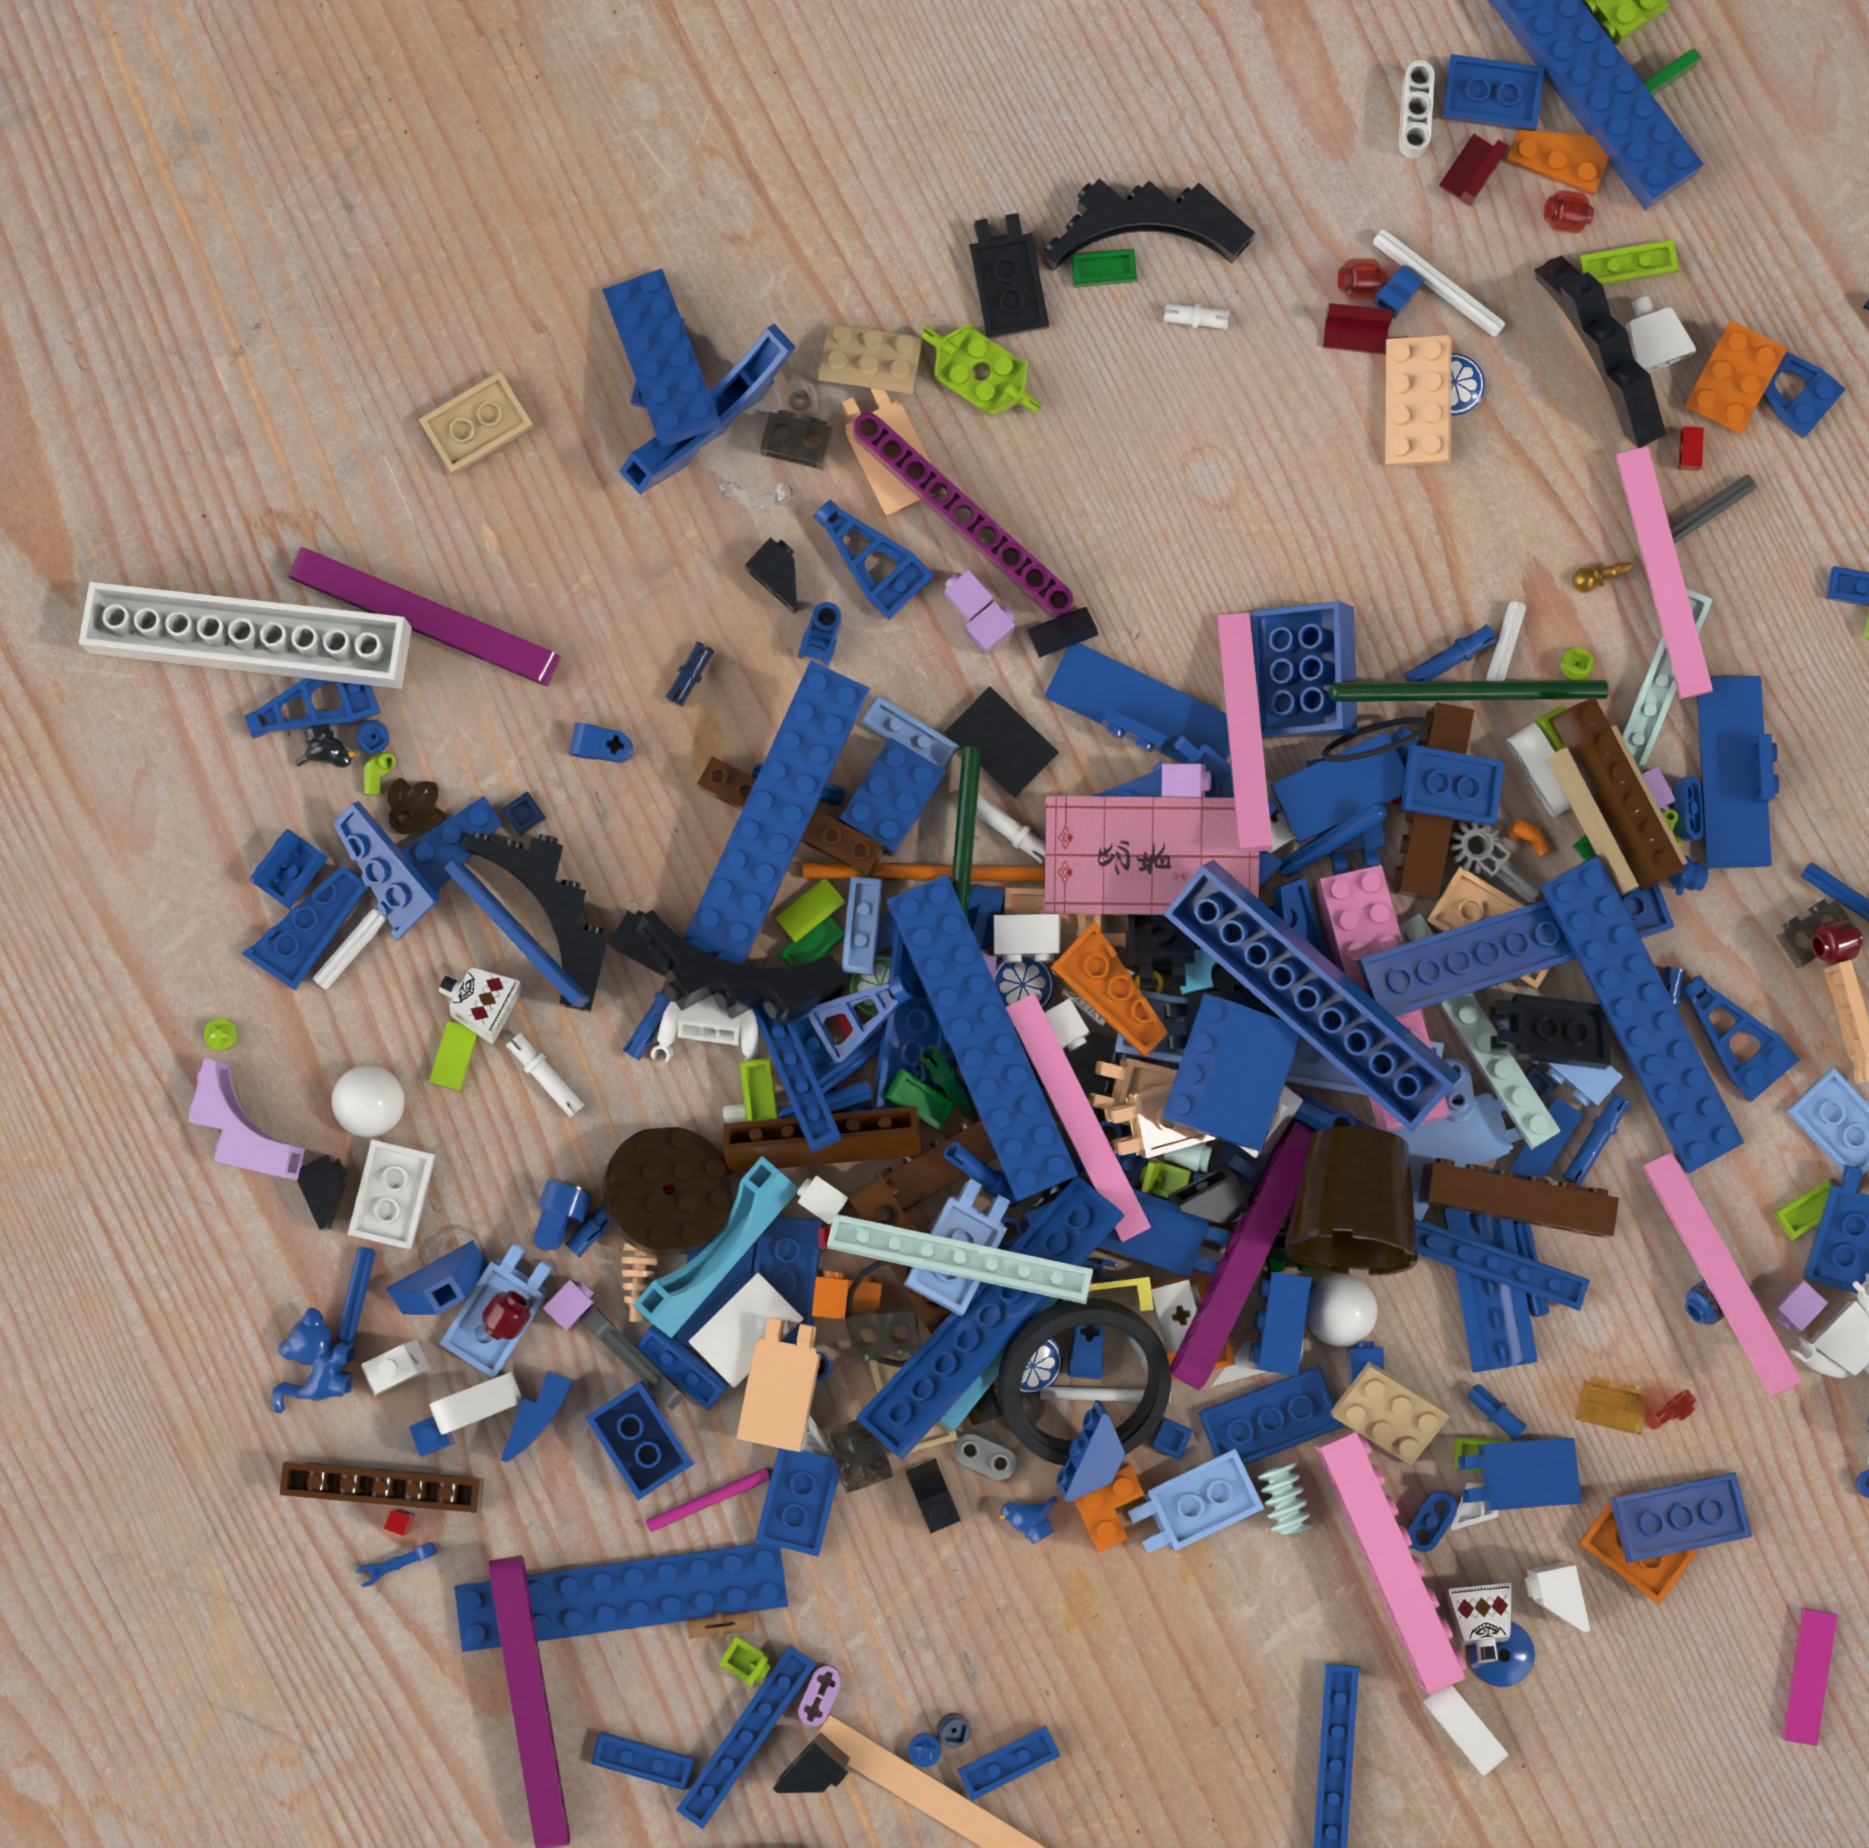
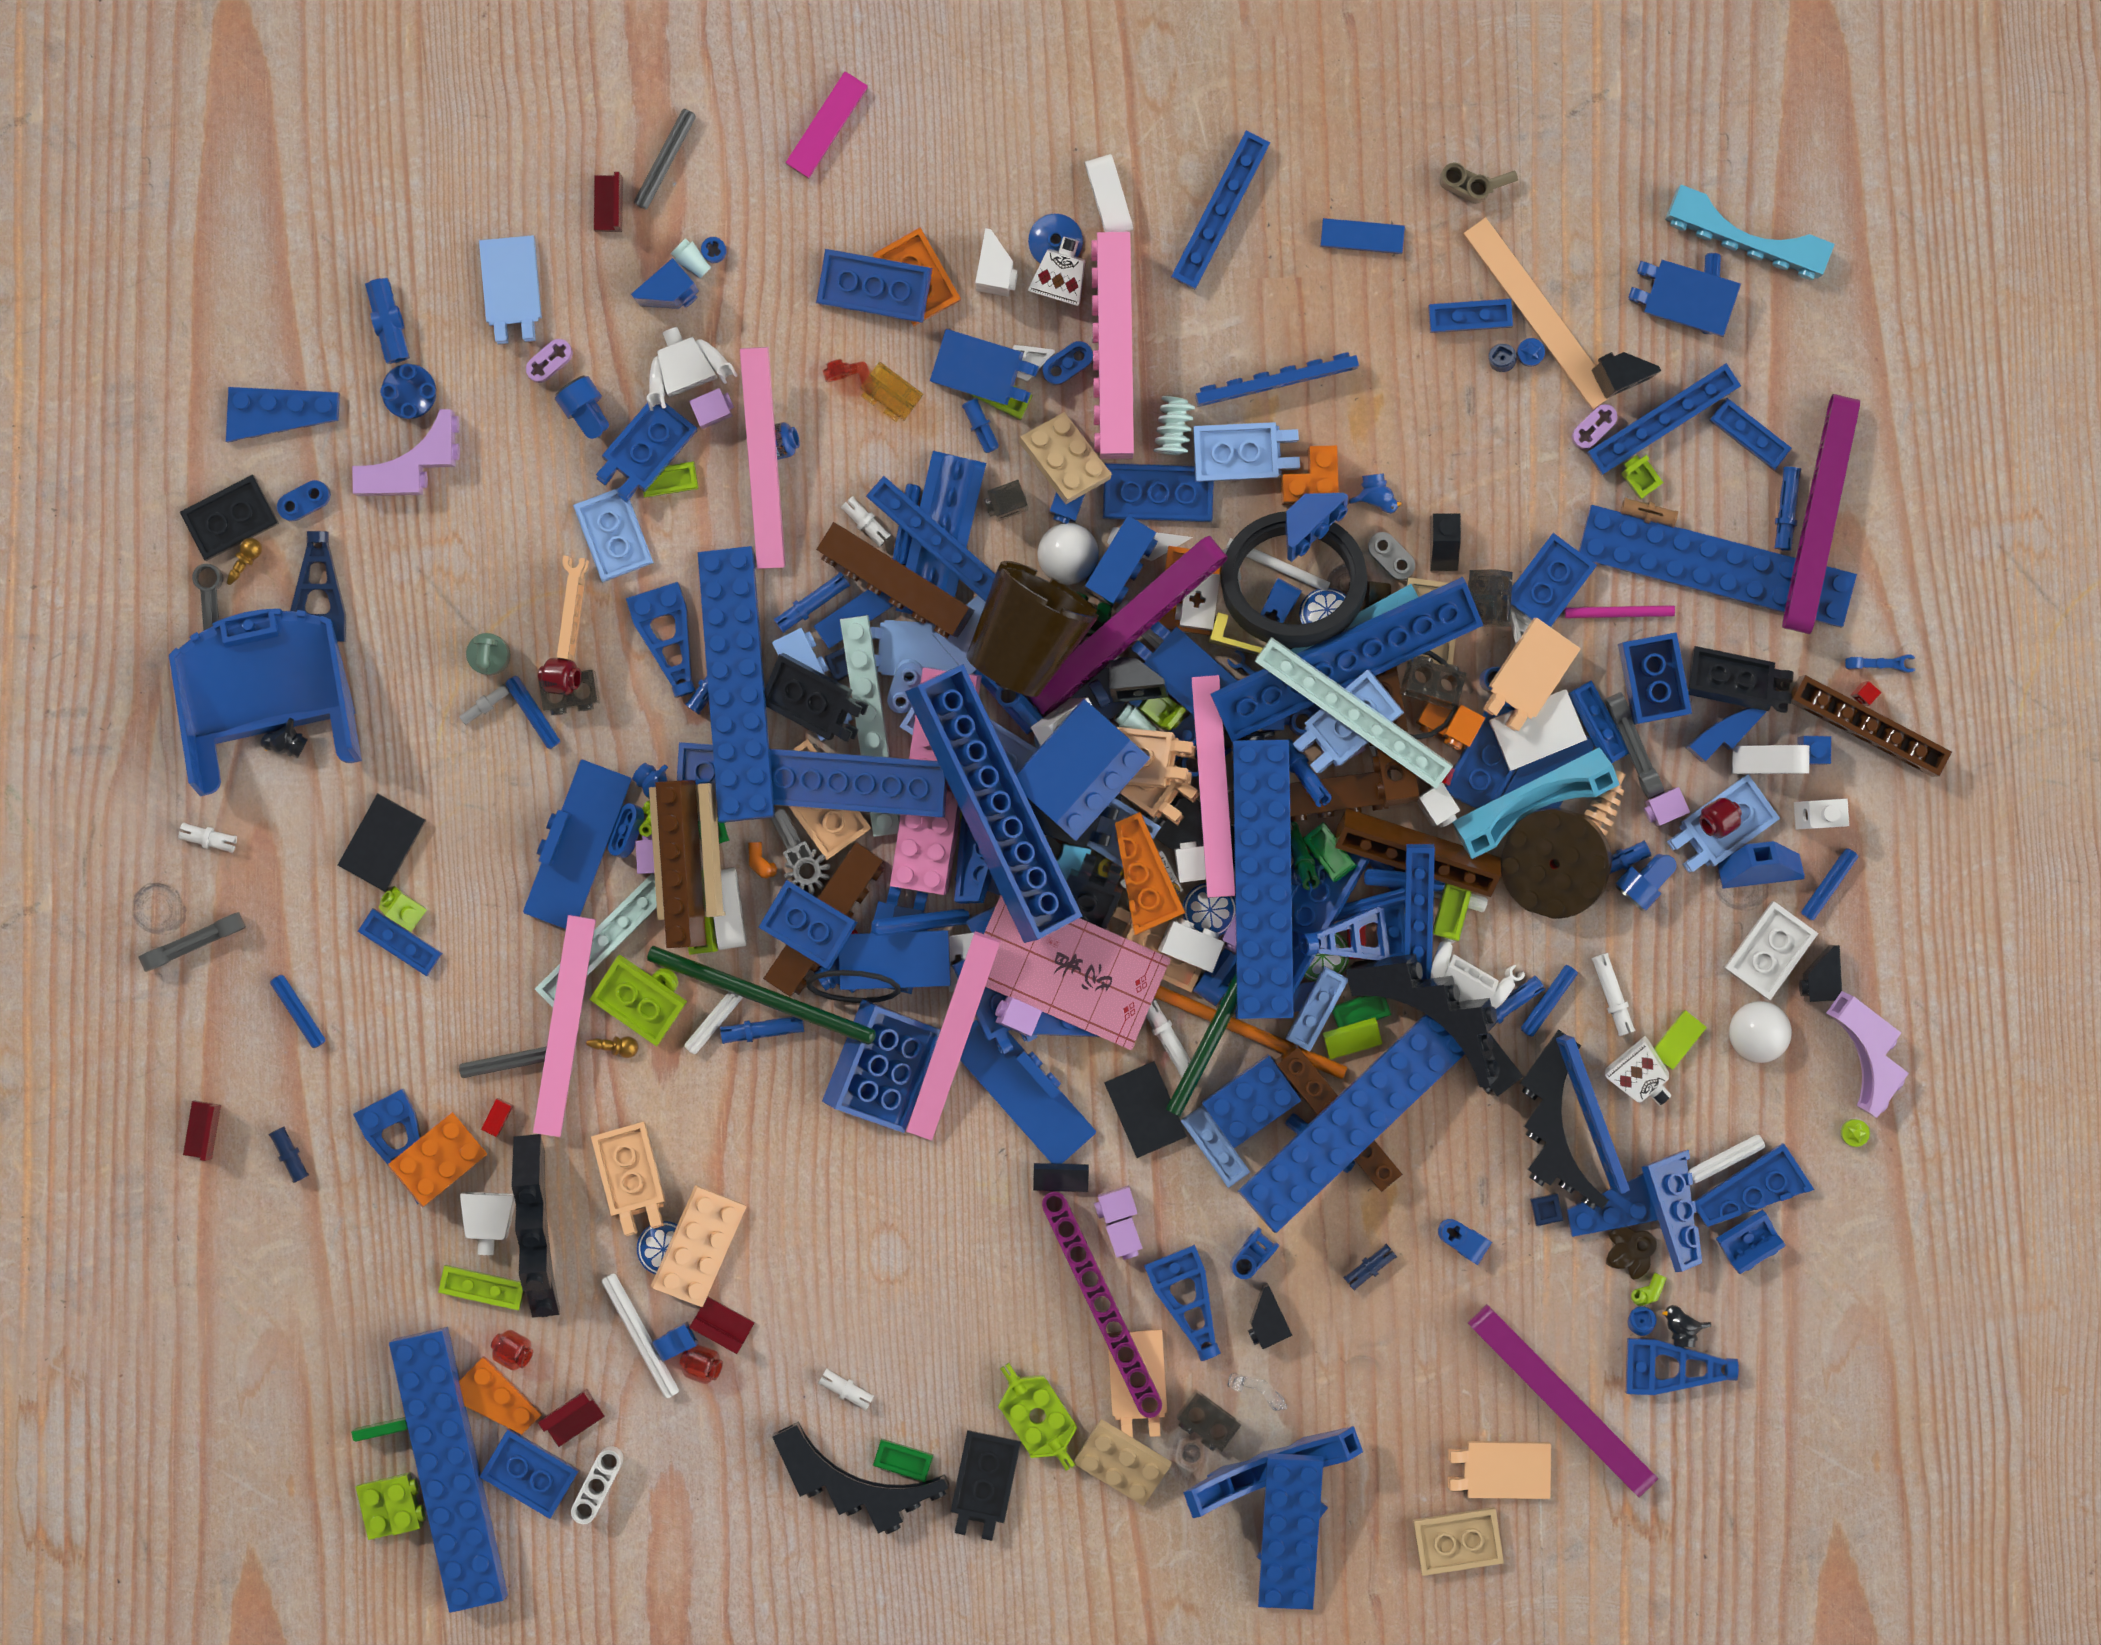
camera: 160 degrees left, 5 degrees up
(245, 635) = (1712, 1443): white brick -> none
(311, 1344) = (1881, 859): blue animal -> none
(458, 518) = (1503, 1469): none -> light nougat tile
(546, 1477) = (1739, 680): none -> black tile
(568, 1693) = (1787, 510): none -> blue pin
(612, 1039) = (1549, 1000): none -> blue axle
(1165, 1802) = (1362, 236): none -> blue tile
(1171, 1438) = (1241, 510): blue tile -> none
(1205, 1591) = (1287, 376): none -> blue plate
(1435, 1338) = (1006, 501): none -> clear smoke brick
(1523, 444) = (629, 1175): none -> light nougat tile
(1576, 1253) = (865, 521): none -> white pin
(1597, 632) = (638, 1000): none -> lime plate

